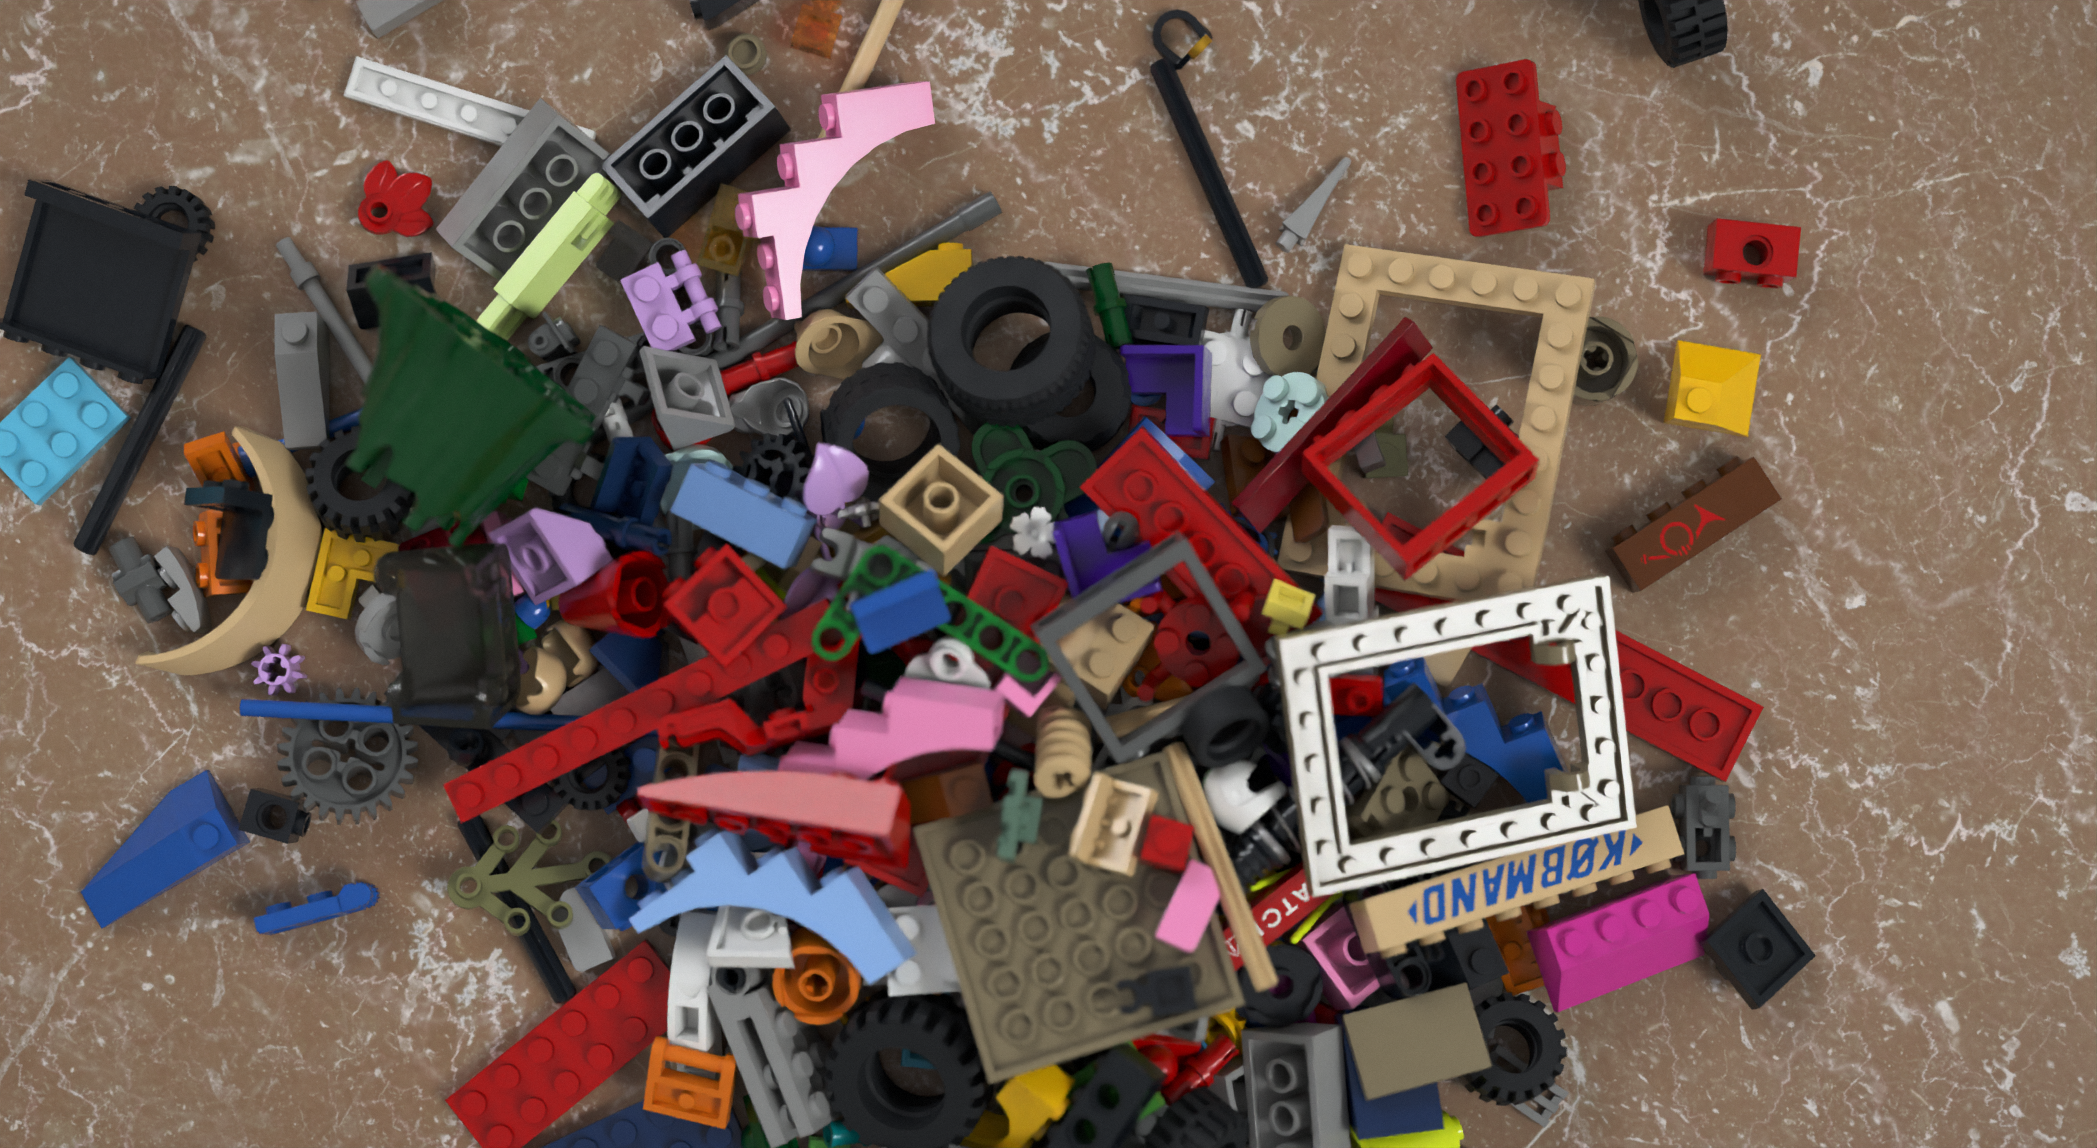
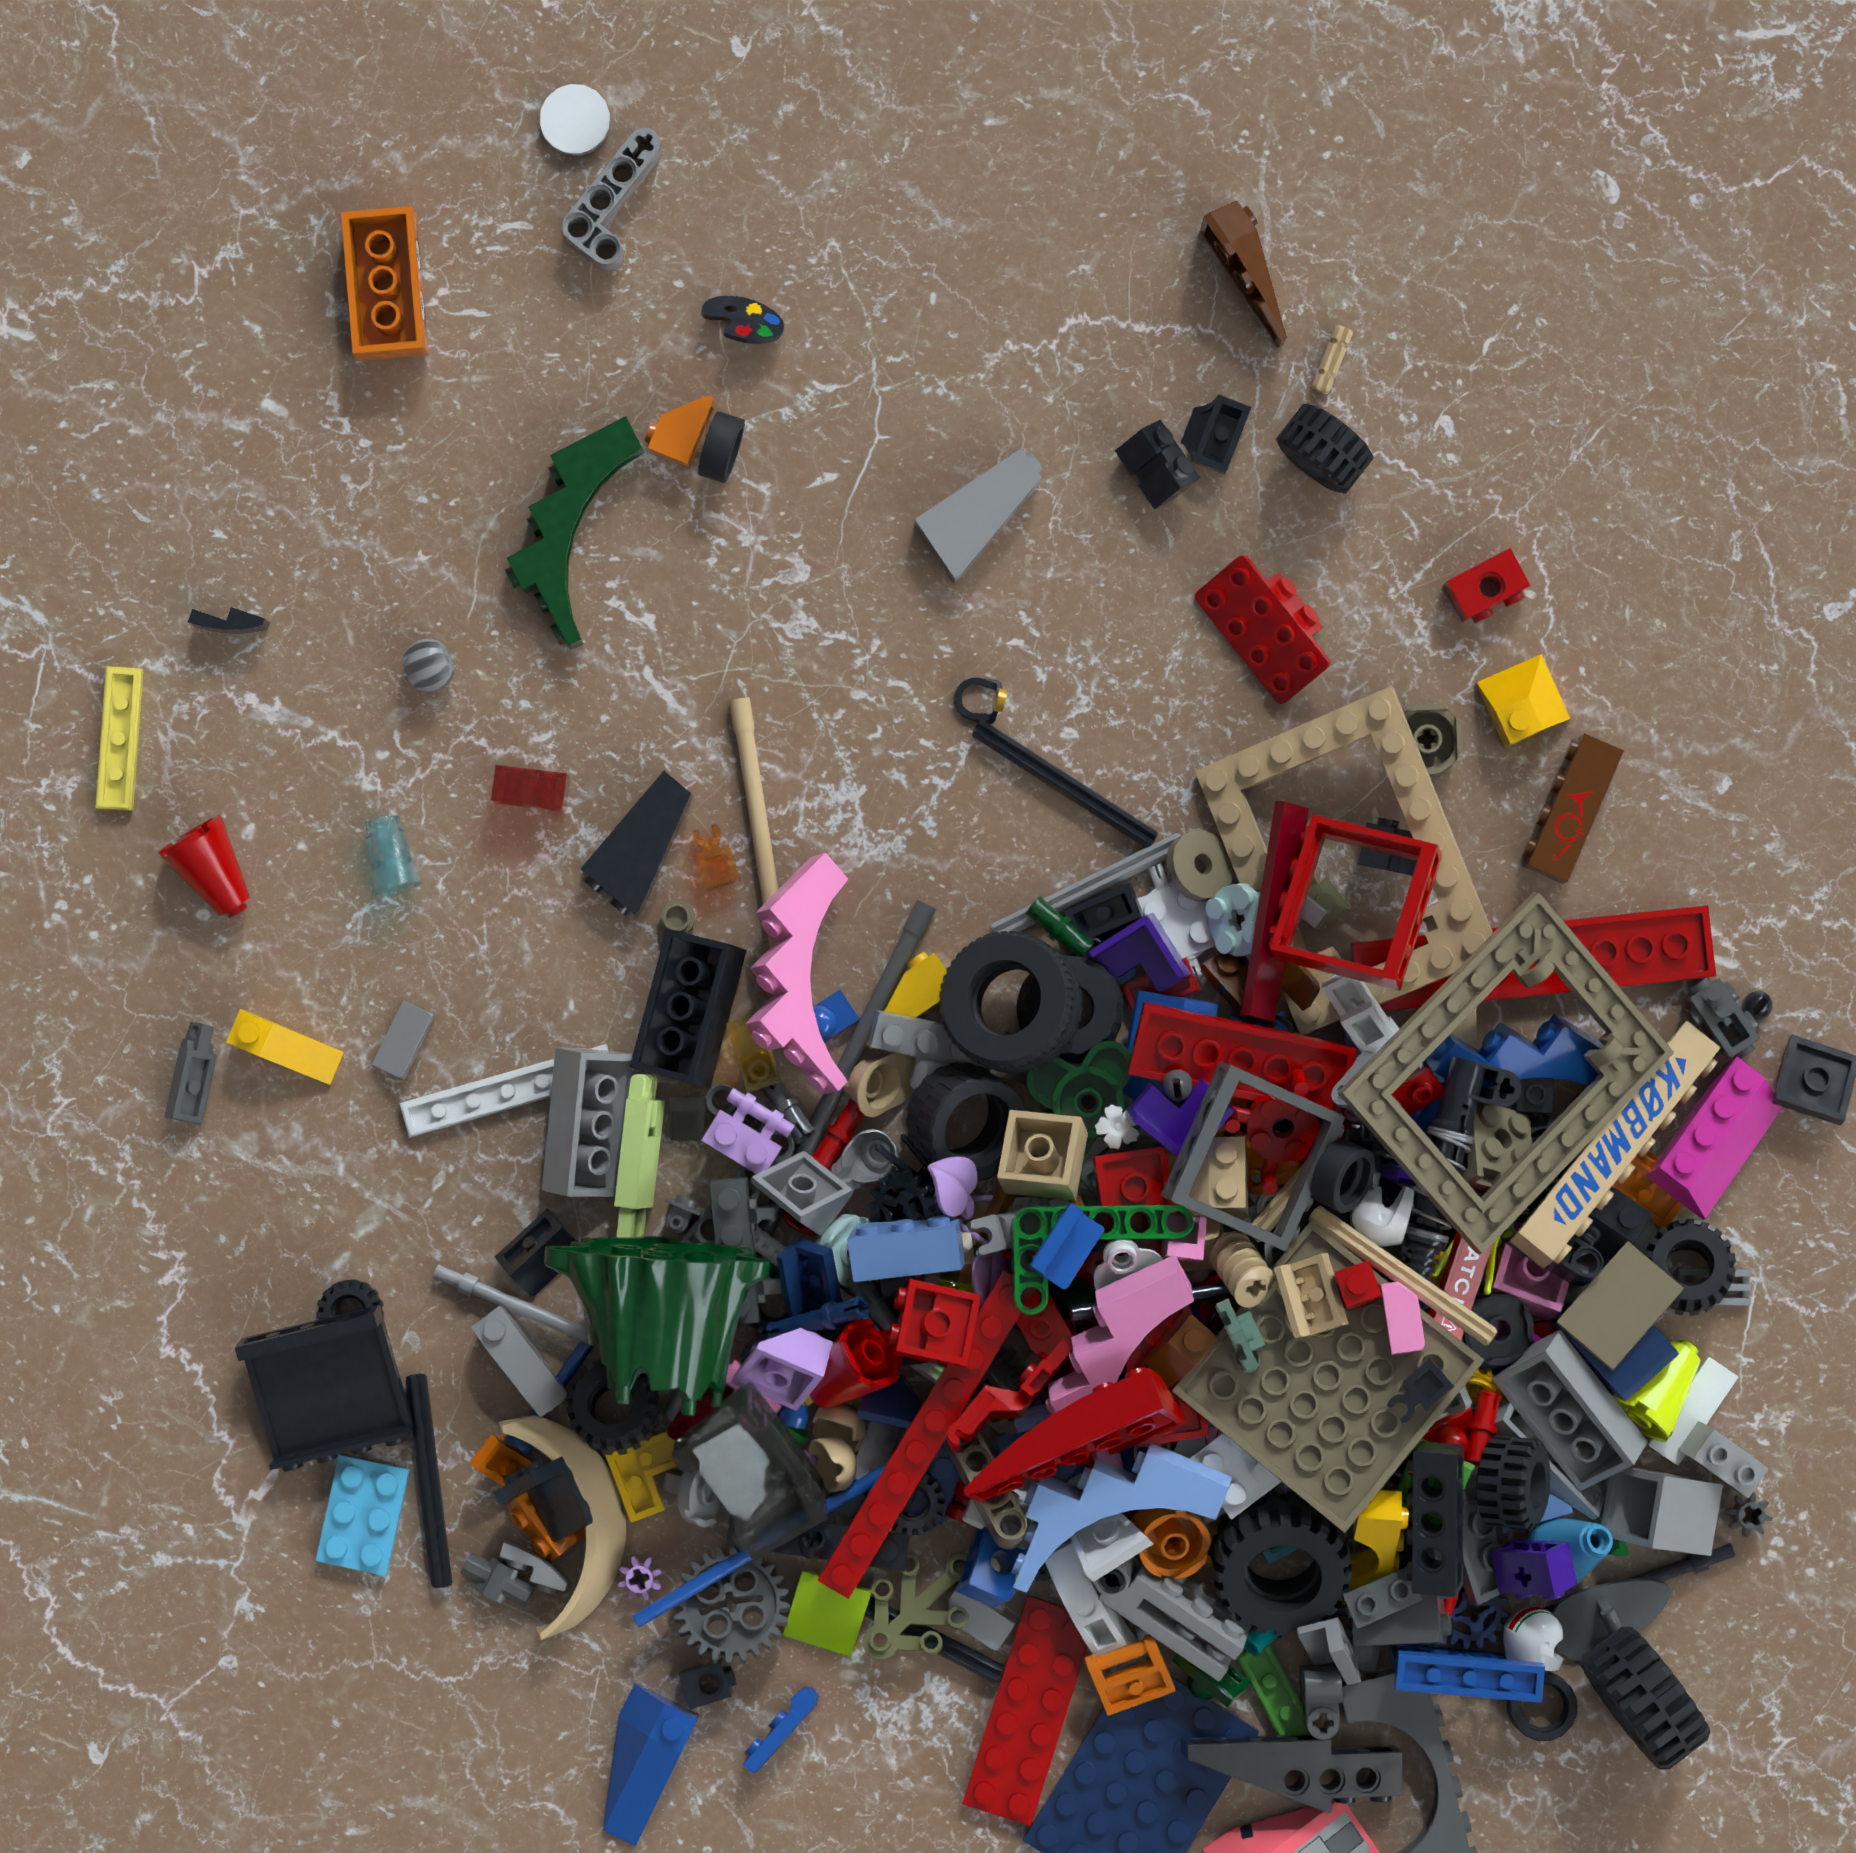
camera: 30 degrees left, 0 degrees up
(400, 197) = (500, 1184): red plate -> none
(431, 828) = (824, 1616): none -> lime slope
(860, 511) = (984, 1190): white plant -> none
(1287, 607) = (1329, 1062): light yellow tile -> none
(1300, 222) = (1153, 776): light grey piece -> none
(1747, 828) = (1752, 999): none -> black hinge

